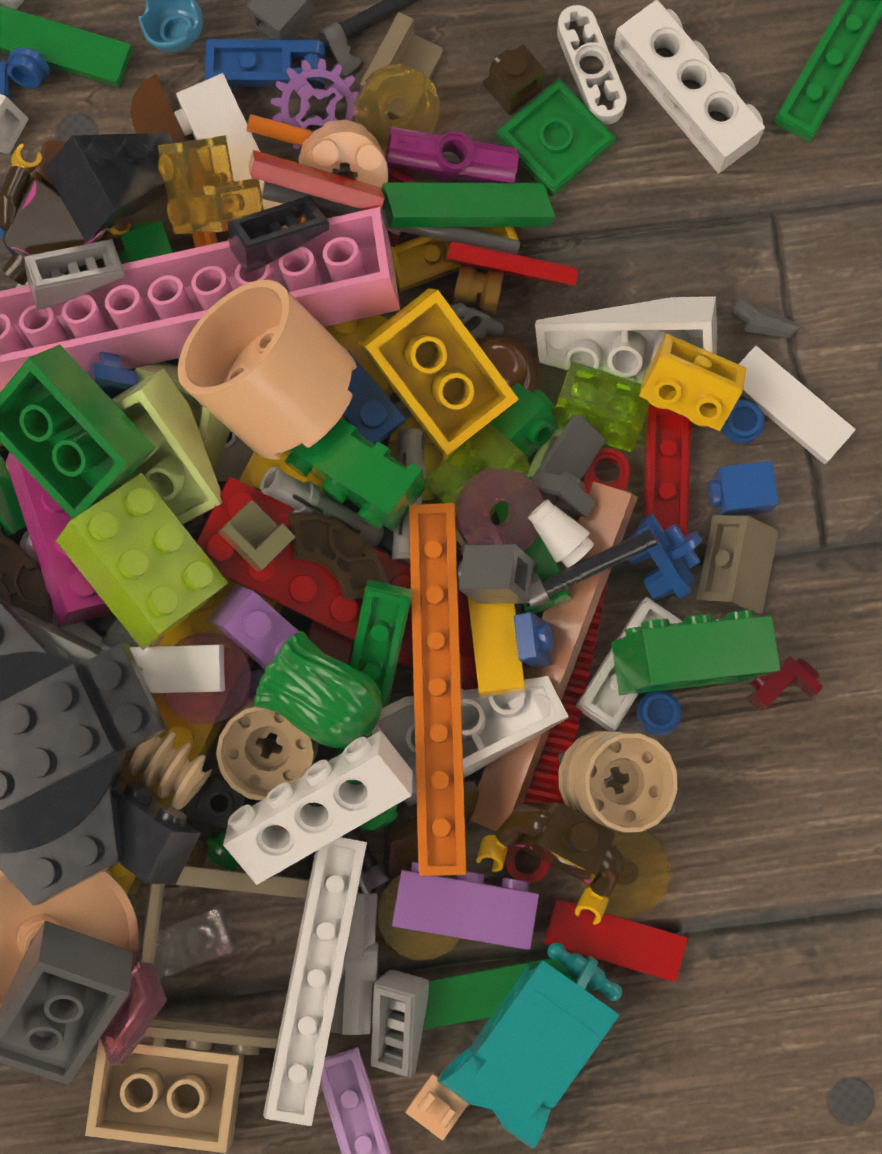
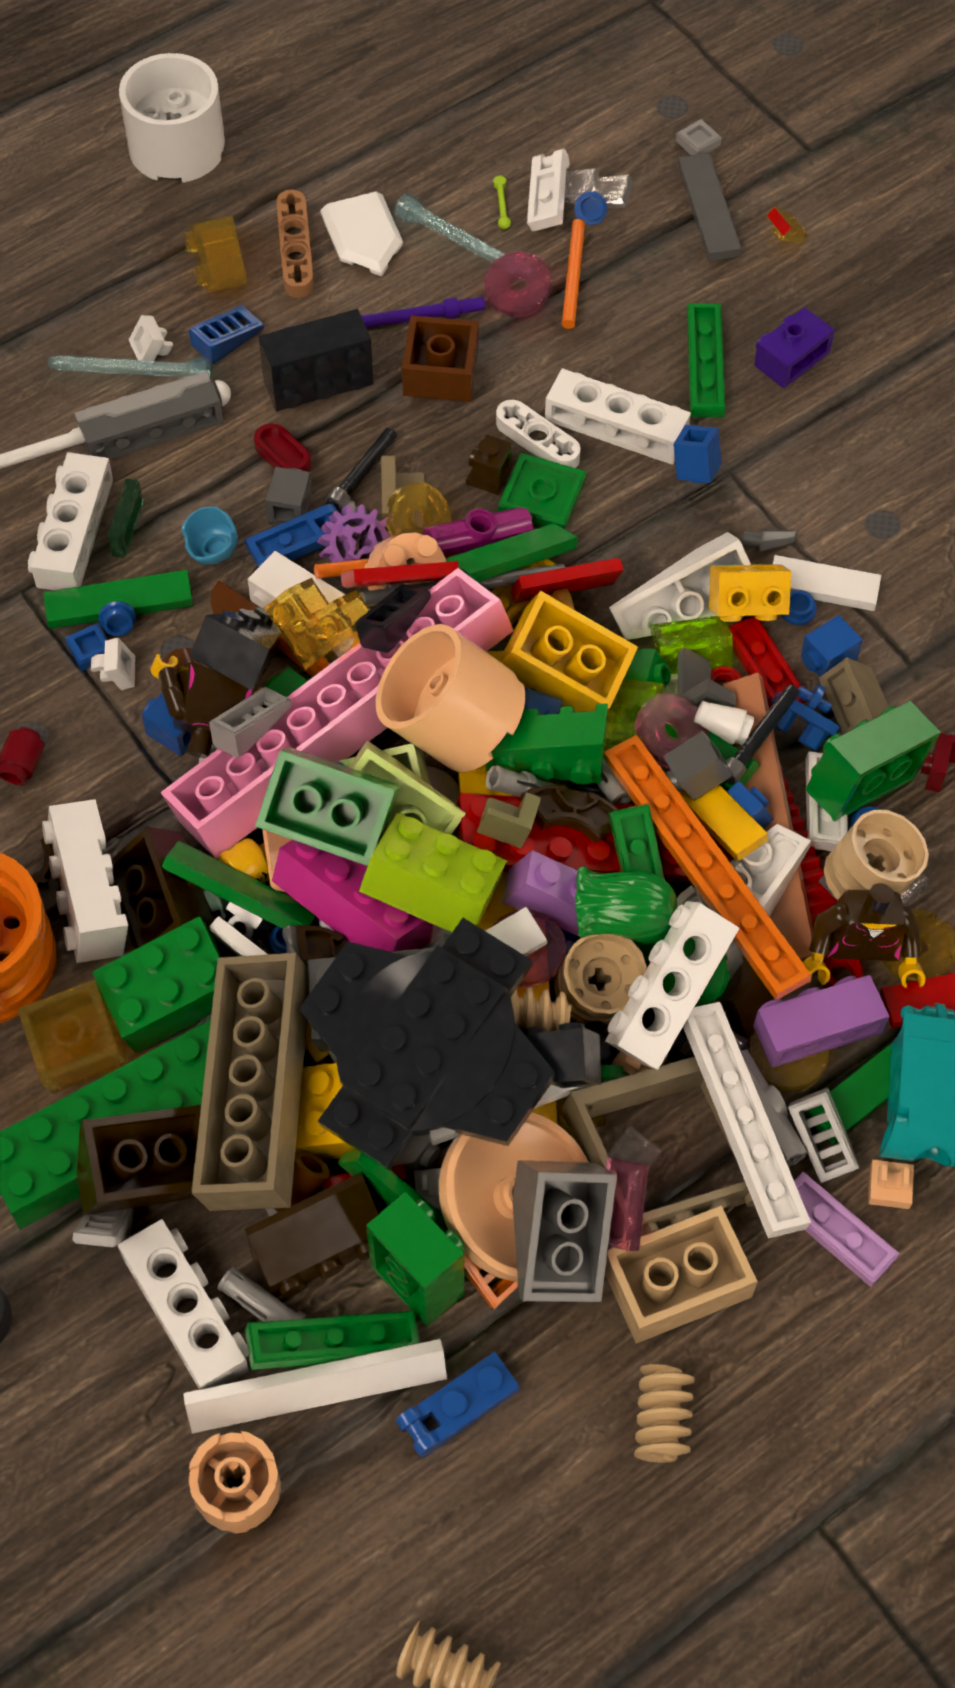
camera: 30 degrees left, 20 degrees down
(743, 181) = (697, 454): none -> blue brick

